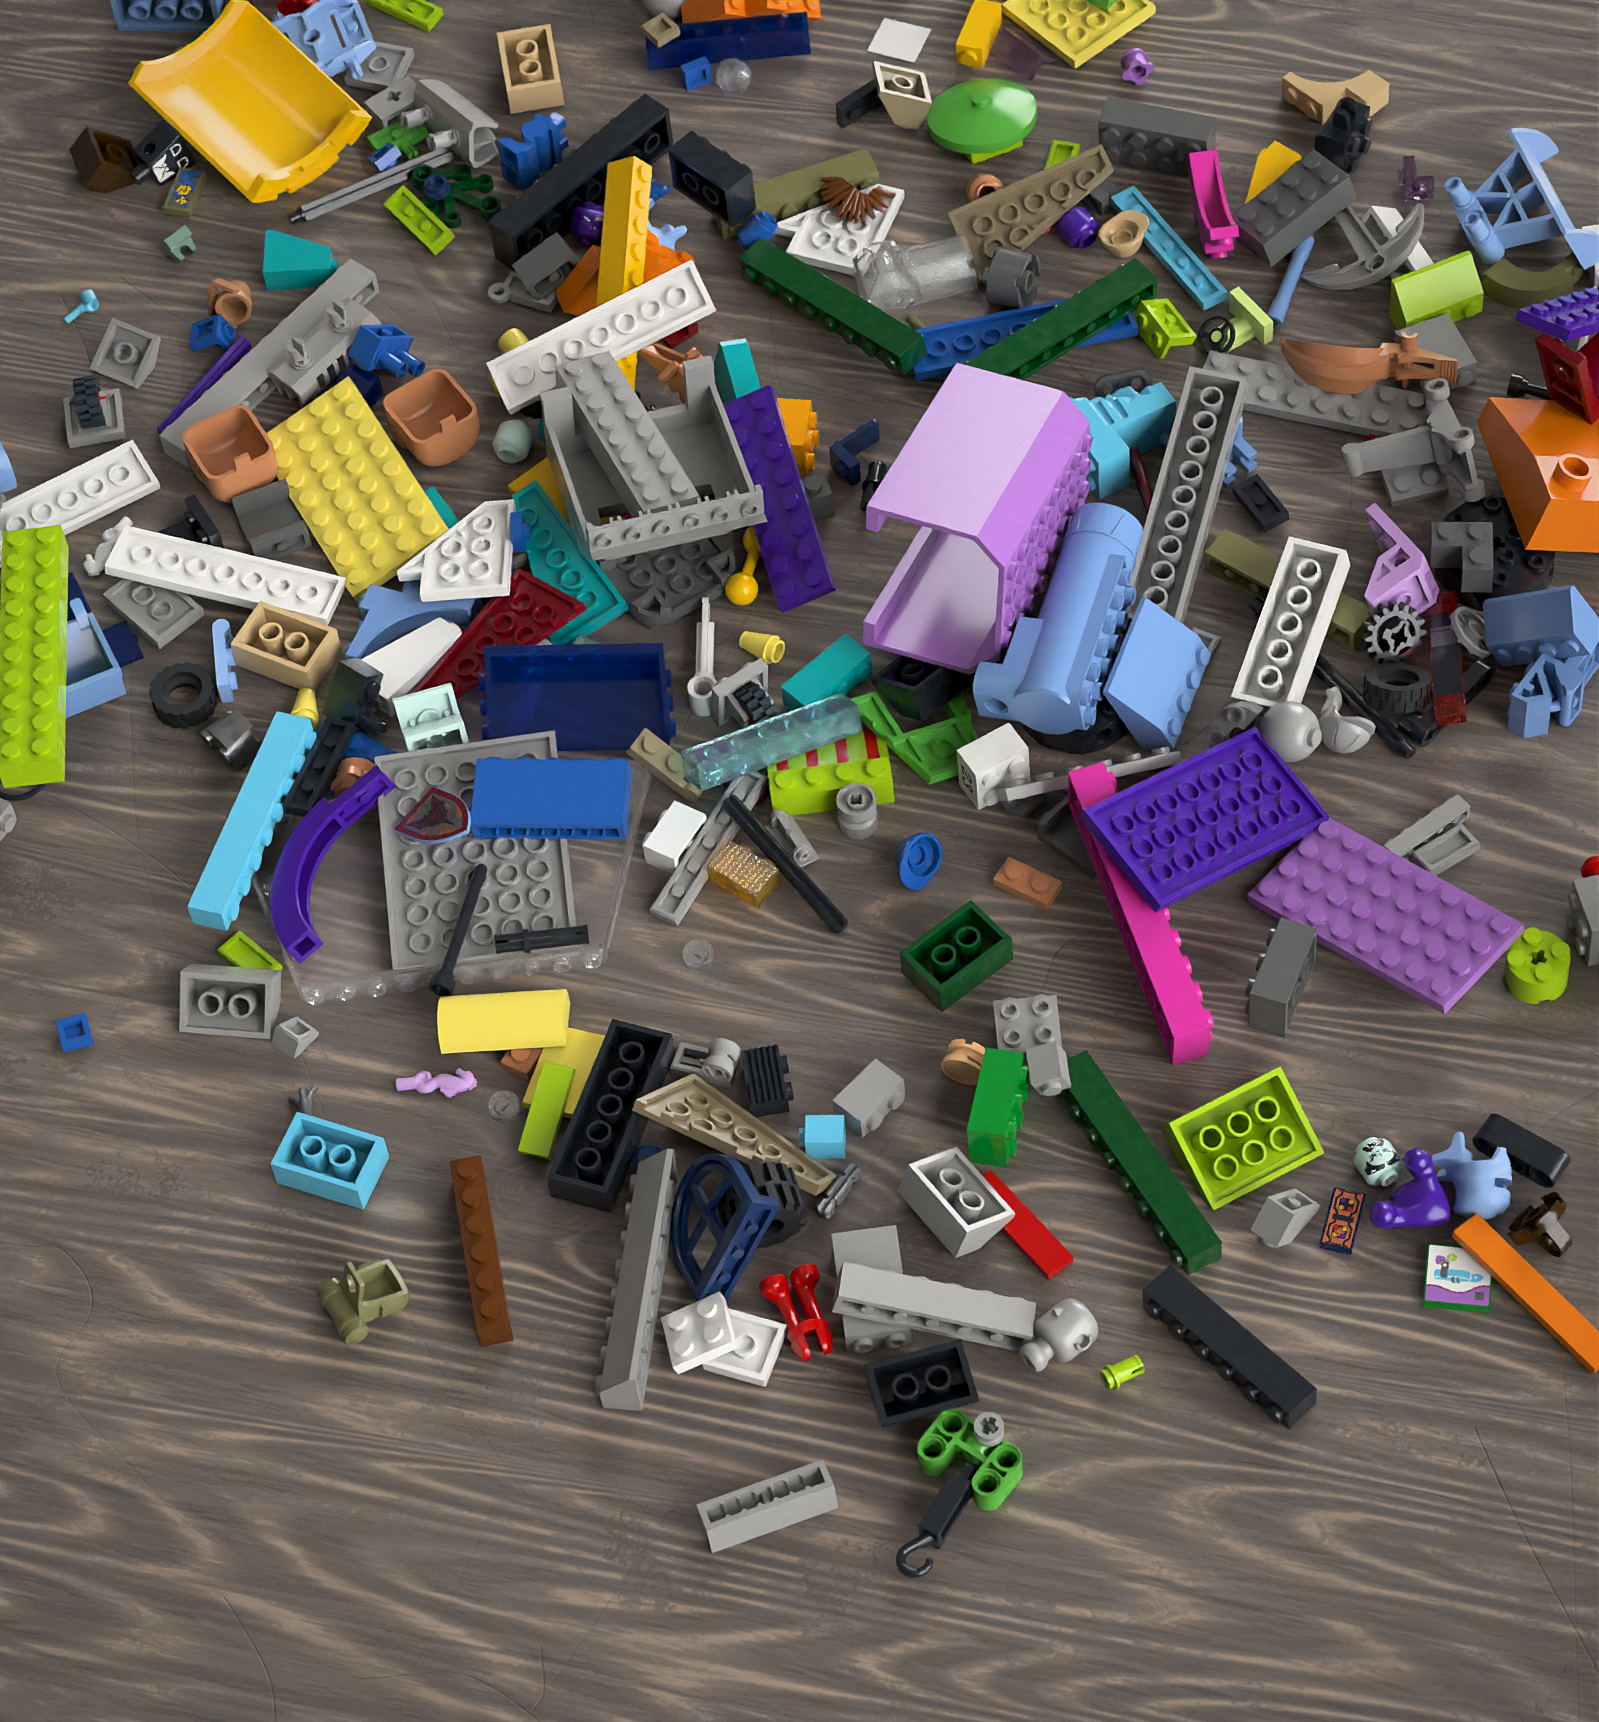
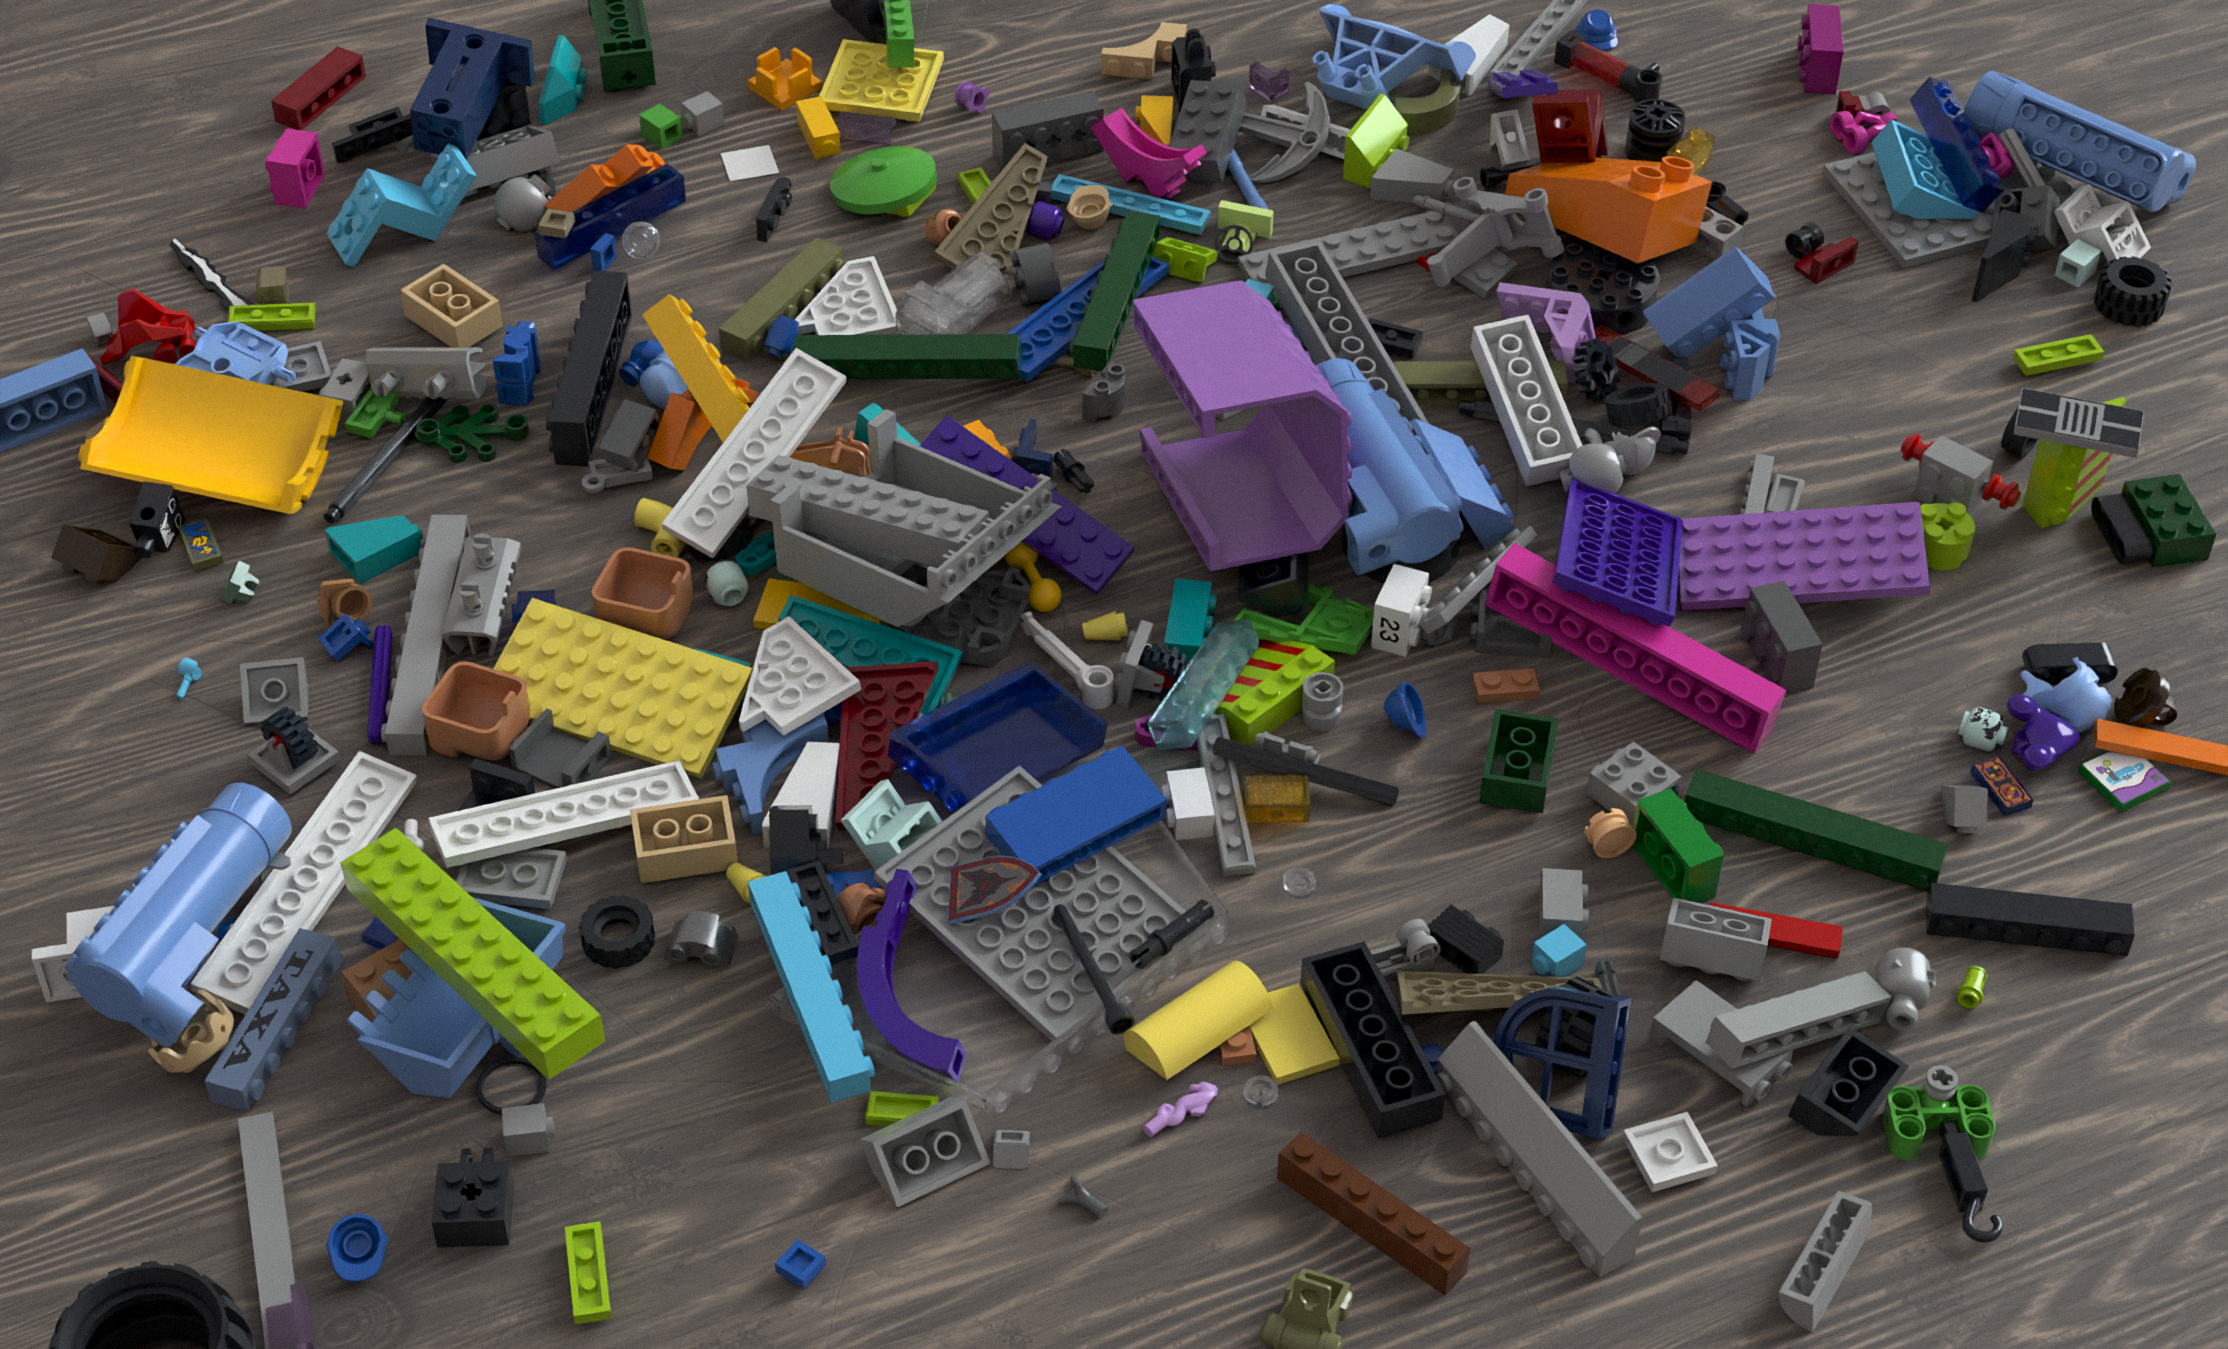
camera: 45 degrees left, 10 degrees down
(224, 660) = (629, 881): light blue plate -> none
(330, 1160) = (1164, 1221): medium azure brick -> none
(385, 157) = (381, 427): plate -> none
(386, 349) = (538, 567): blue brick -> none
(419, 220) = (459, 463): lime plate -> none
(436, 187) = (453, 430): dark blue plate -> none
(519, 531) = (820, 633): blue plate -> none
(546, 1110) = (1309, 1070): lime tile -> none
(587, 222) = (622, 388): dark purple head -> none
(663, 763) = (1142, 751): dark tan plate -> none
(699, 1332) = (1631, 1158): white plate -> none
(712, 178) = (725, 302): black brick -> none
(803, 1281) = (1714, 1109): red piece -> none
(853, 201) = (844, 277): reddish brown hair -> none
(903, 94) = (808, 190): dark tan slope -> none
(1048, 1068) = (1695, 790): light grey brick -> none
(1225, 722) = (1546, 487): flat silver cylinder -> none
(1243, 1139) = (1870, 765): lime slope -> none
(1356, 369) = (1371, 210): nougat piece -> none
(1464, 547) = (1605, 280): dark grey brick -> none
(1469, 632) = (1647, 342): light grey wheel -> none

